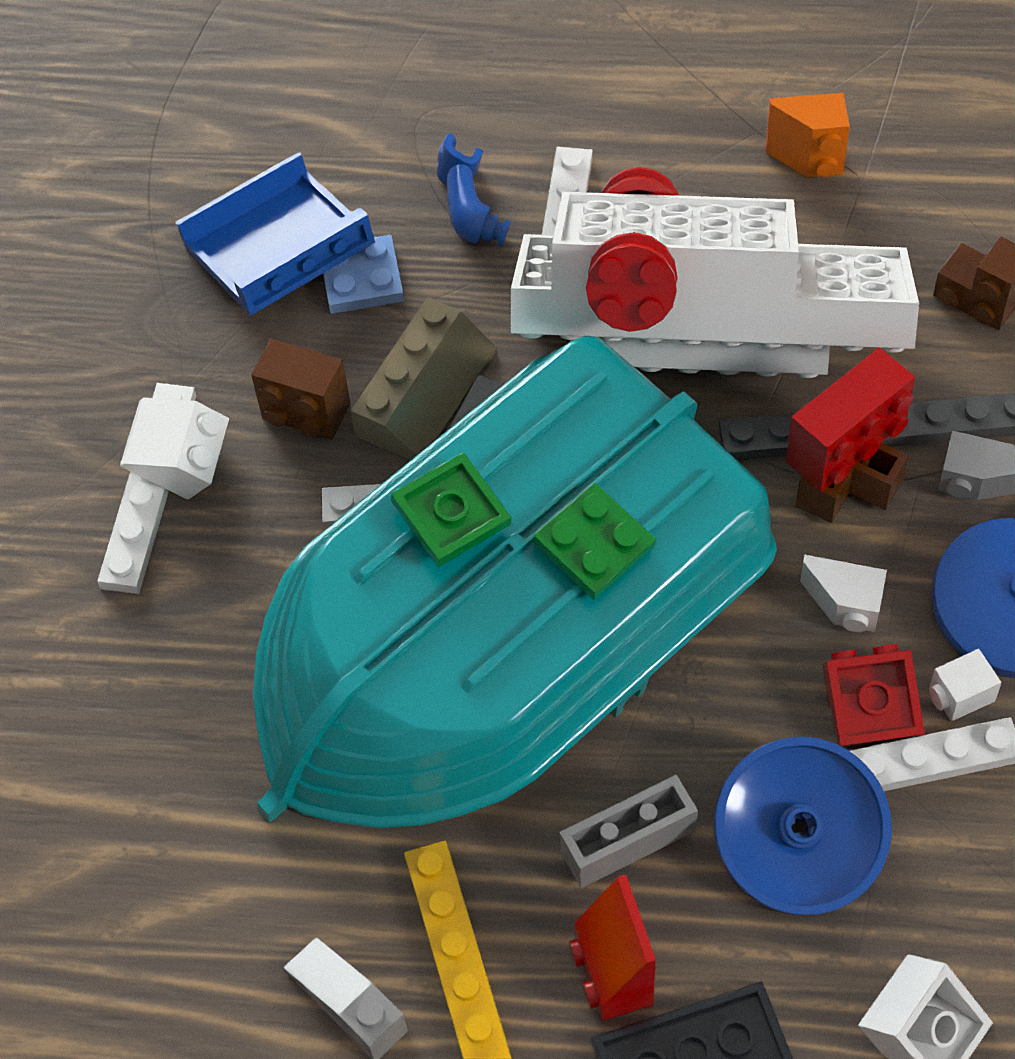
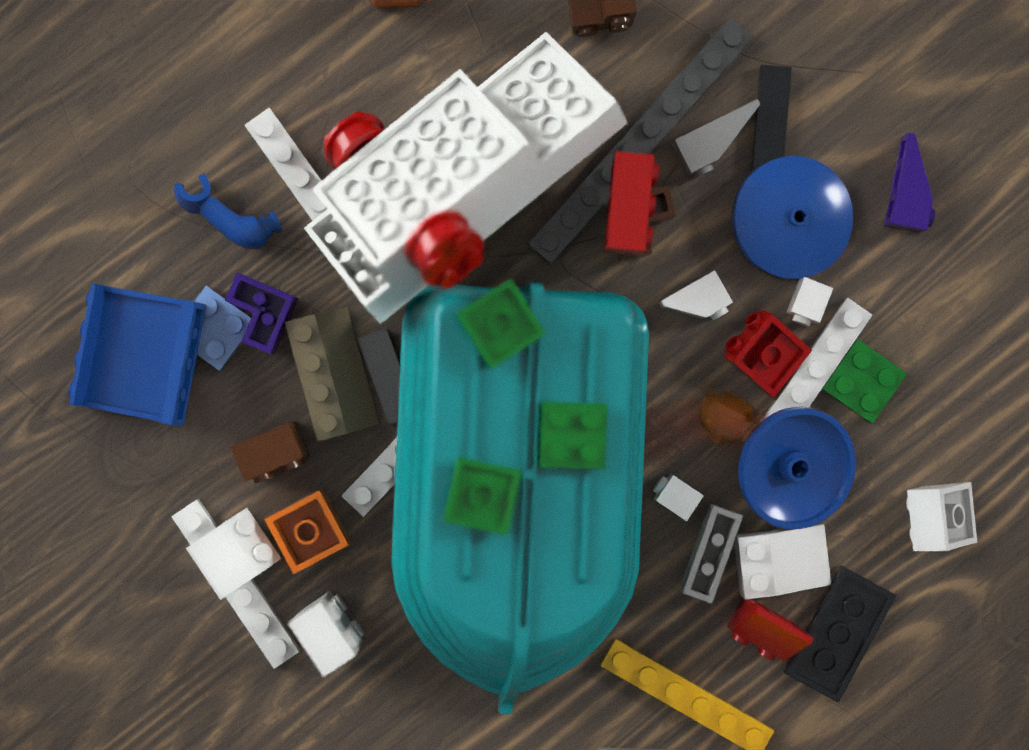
camera: 50 degrees left, 30 degrees up
(180, 567) = (327, 632): none -> white brick
(260, 483) = (308, 531): none -> orange brick
(420, 275) = (269, 309): none -> dark purple brick
(621, 385) = (500, 324): none -> green plate
(646, 754) = (677, 496): none -> white brick
(701, 913) = (781, 561): none -> white slope
(767, 711) = (727, 417): none -> clear orange cylinder
(957, 816) = (864, 381): none -> green plate

